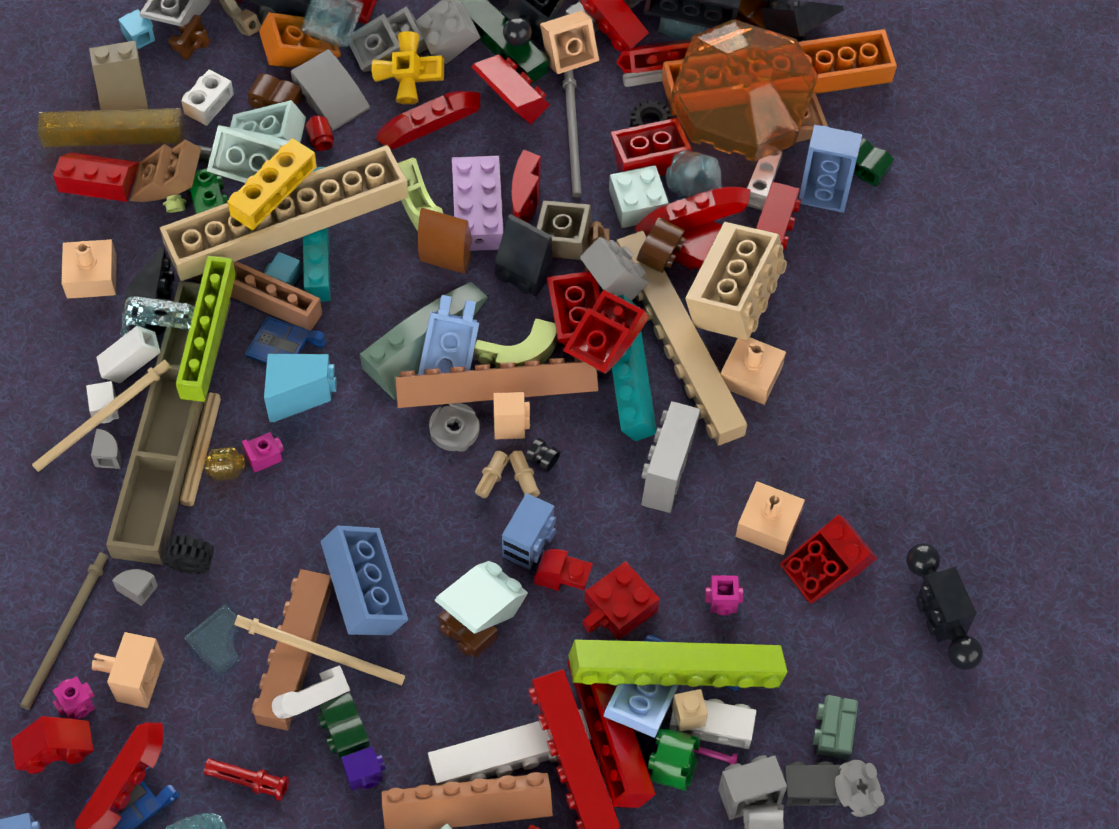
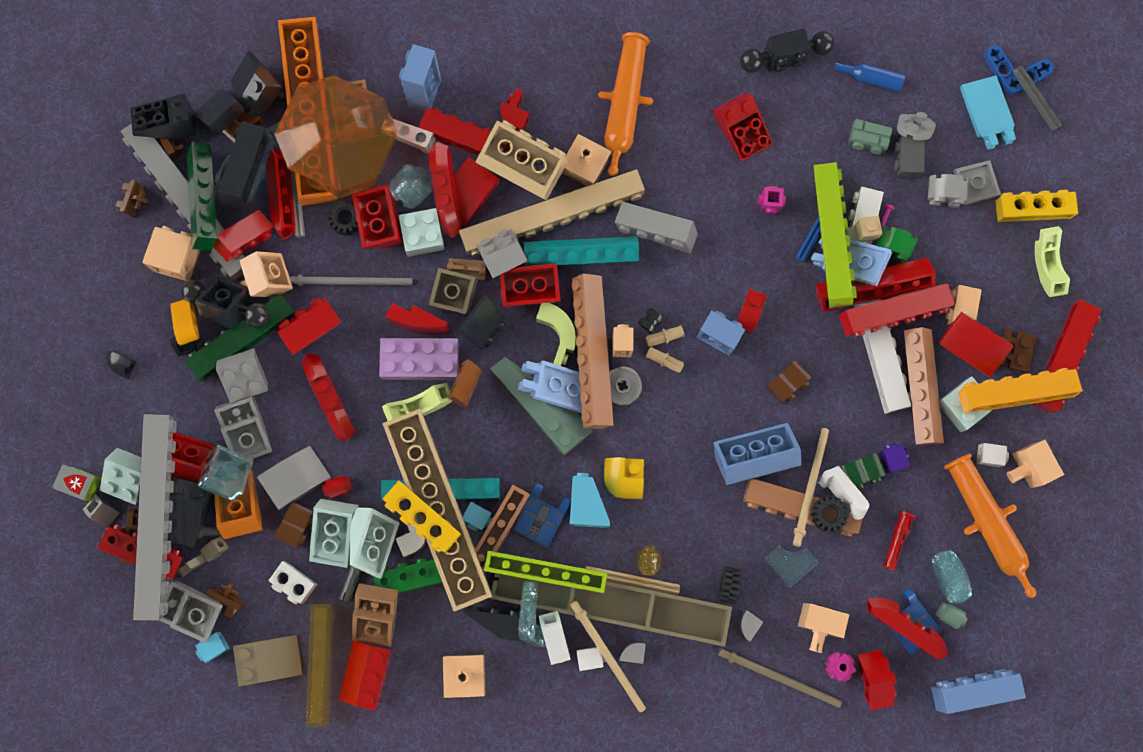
camera: 90 degrees left, 20 degrees up
(174, 204) = (403, 607): yellowish green plate -> none
(263, 451) = (636, 538): dark pink brick -> none
(274, 655) = (841, 511): none -> black tyre
(333, 434) = (624, 477): none -> yellow brick
(408, 68) = (279, 410): yellow brick -> none
(483, 597) = (776, 368): light aqua slope -> none
(606, 332) = (563, 262): red slope -> none
(619, 602) = (774, 273): red hinge -> none
(661, 245) = (479, 216): reddish brown brick -> none
(751, 784) = (917, 195): light grey brick -> none
(770, 518) = (710, 162): light nougat brick -> none
(805, 284) = (511, 113): none -> red brick
(845, 409) = (625, 98): none -> orange piece
(872, 163) = (393, 57): dark green brick -> none
(930, 733) = (874, 76): none -> blue piece

